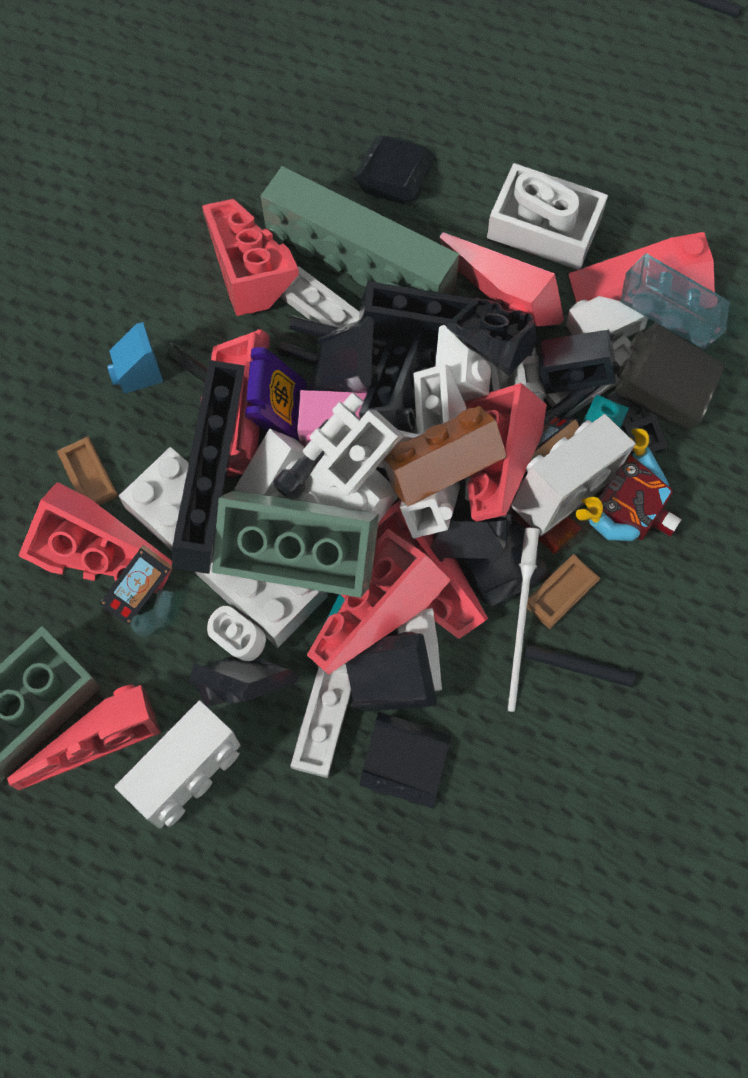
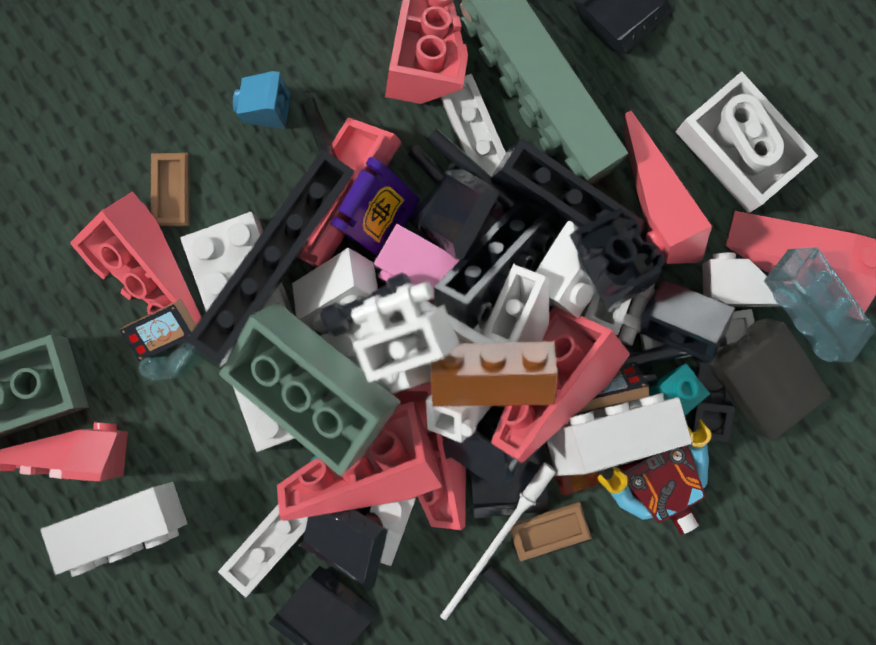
camera: 30 degrees right, 15 degrees up
(236, 633) = (227, 431): white plate -> none
(237, 680) = (206, 477): black slope -> none

